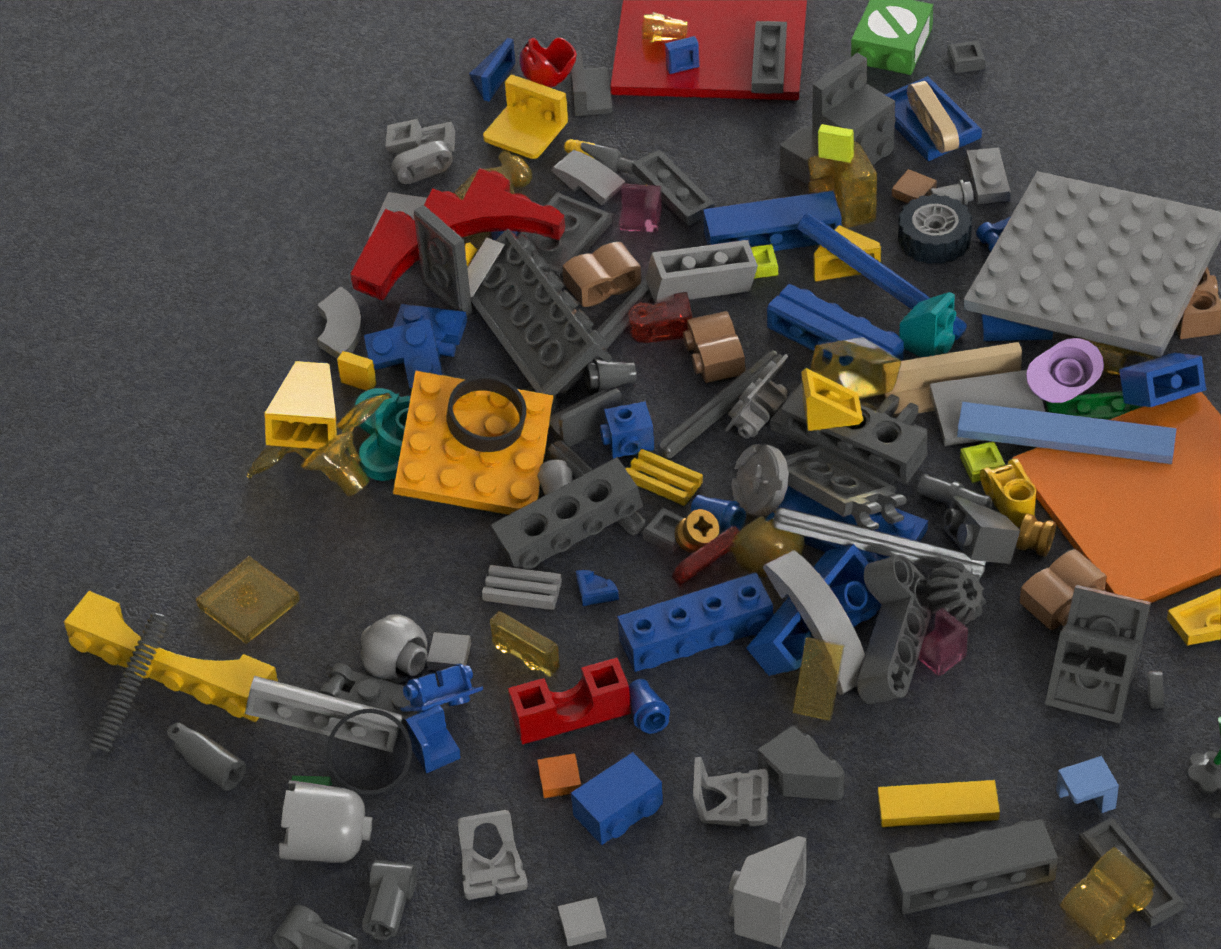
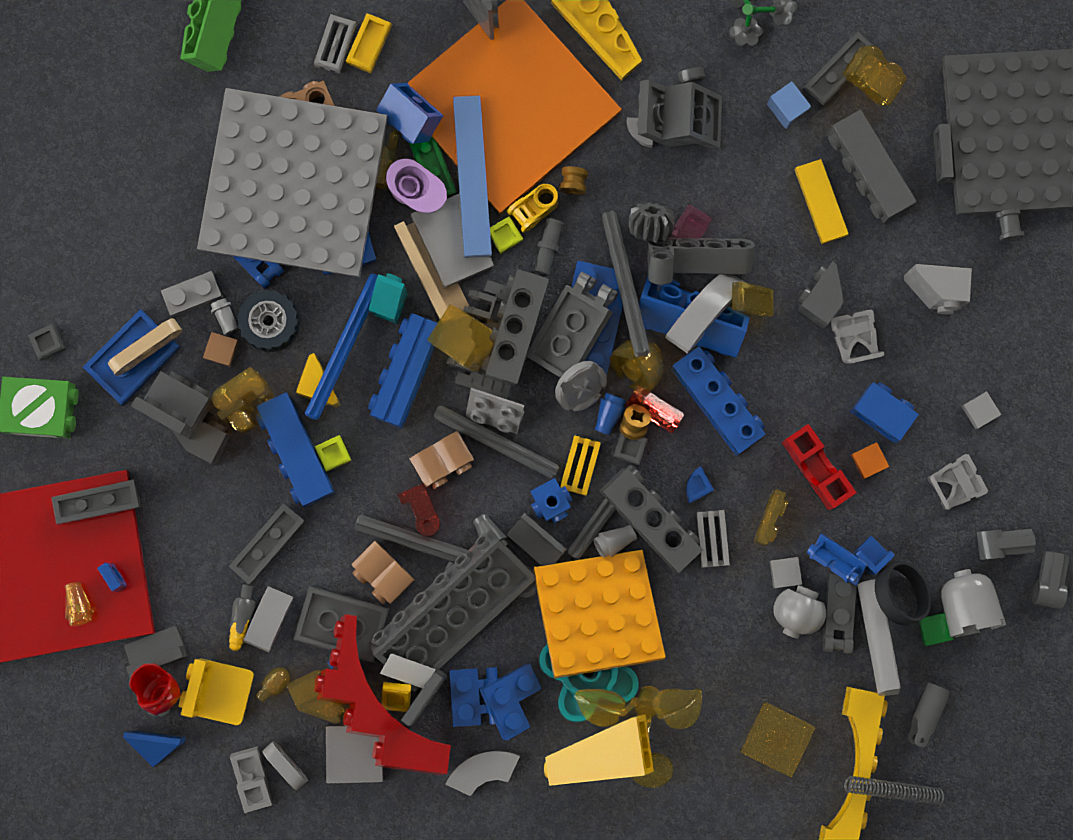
camera: 110 degrees left, 35 degrees up
(356, 371) = (537, 736): yellow tile -> none
(492, 384) = (593, 580): black tyre -> none
(640, 207) = (299, 563): clear pink panel -> none
(648, 709) = (798, 415): blue cone -> none
(701, 271) = (374, 488): light grey brick -> none
(828, 403) = (515, 343): yellow slope -> none
(836, 143) = (232, 403): neon yellow tile -> none
(980, 531) = (585, 218): dark grey slope -> none
(1051, 590) = (620, 152): medium nougat brick -> none

